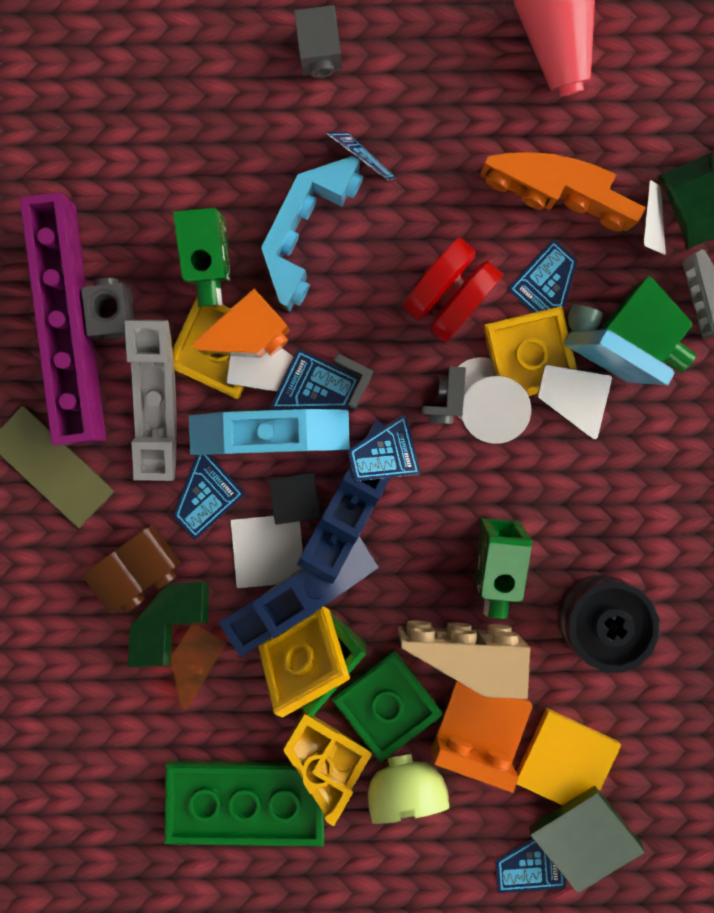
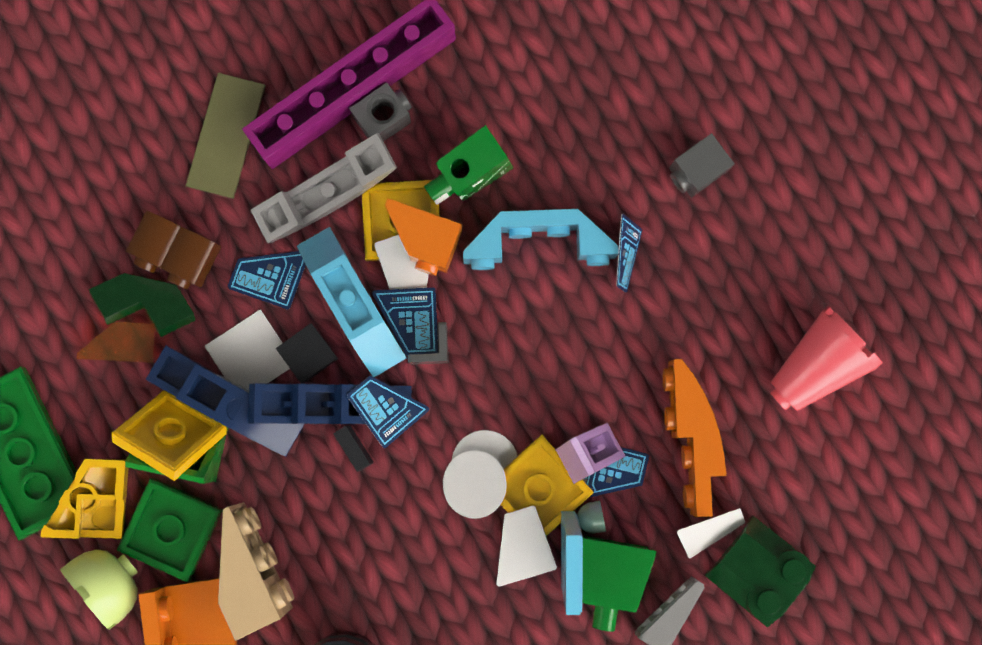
camera: 55 degrees right, 5 degrees down
(406, 501) = (353, 448): none -> black piece
(449, 288) = (552, 384): red wheel -> none
(452, 389) = (469, 436): dark grey bracket -> none
(501, 564) = (342, 560): green torso -> none
(527, 289) = (590, 452): none -> lavender slope

